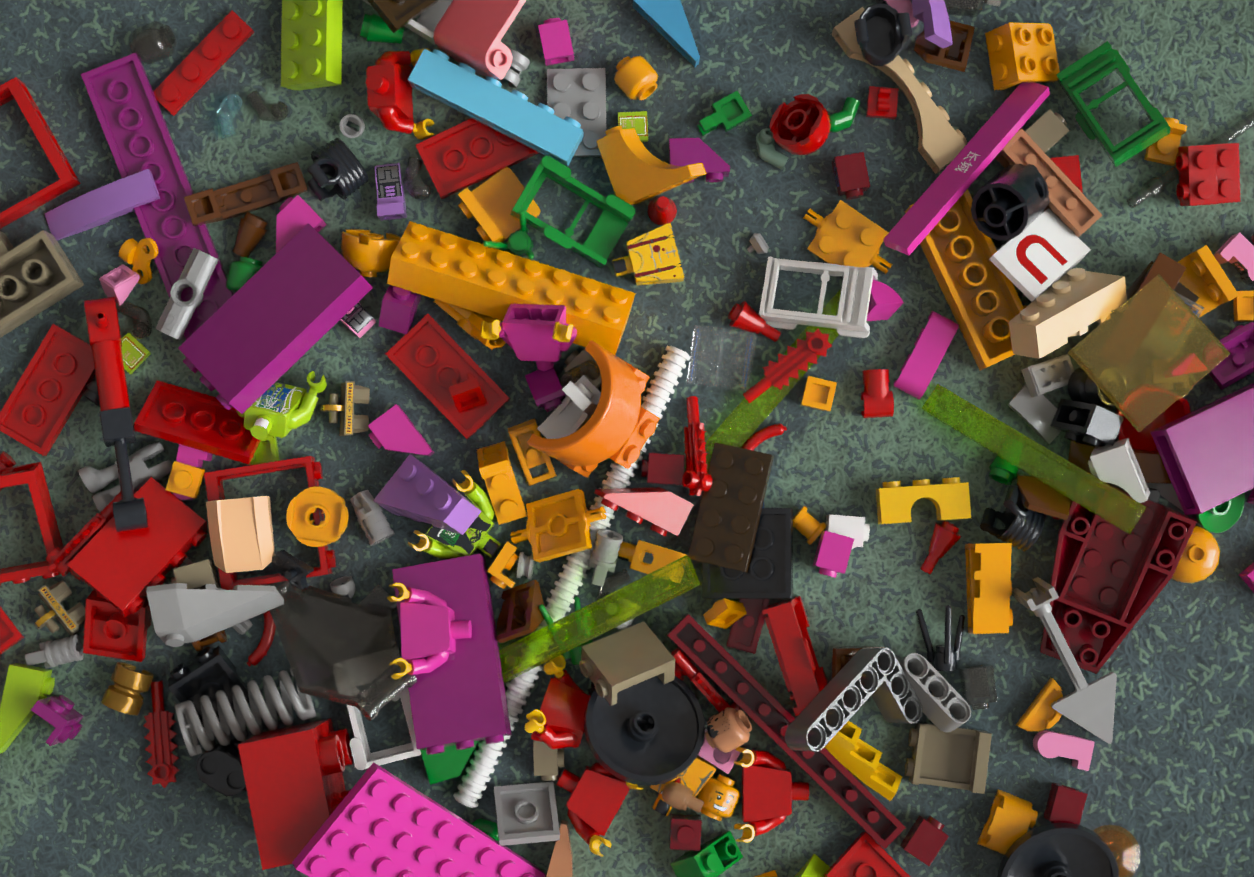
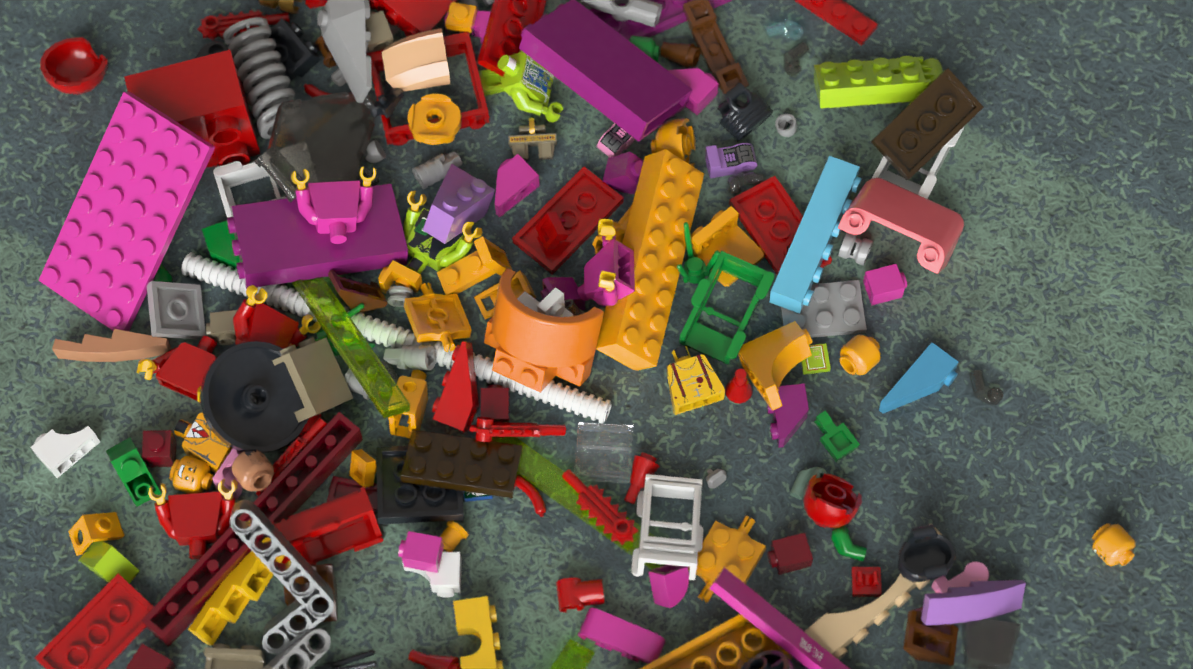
camera: 90 degrees right, 20 degrees down
(377, 30) = (871, 131): green cone -> none
(391, 94) = (813, 147): red torso -> none
(681, 797) = (190, 436): medium nougat cylinder -> none
(818, 393) = (576, 541): light orange plate -> none

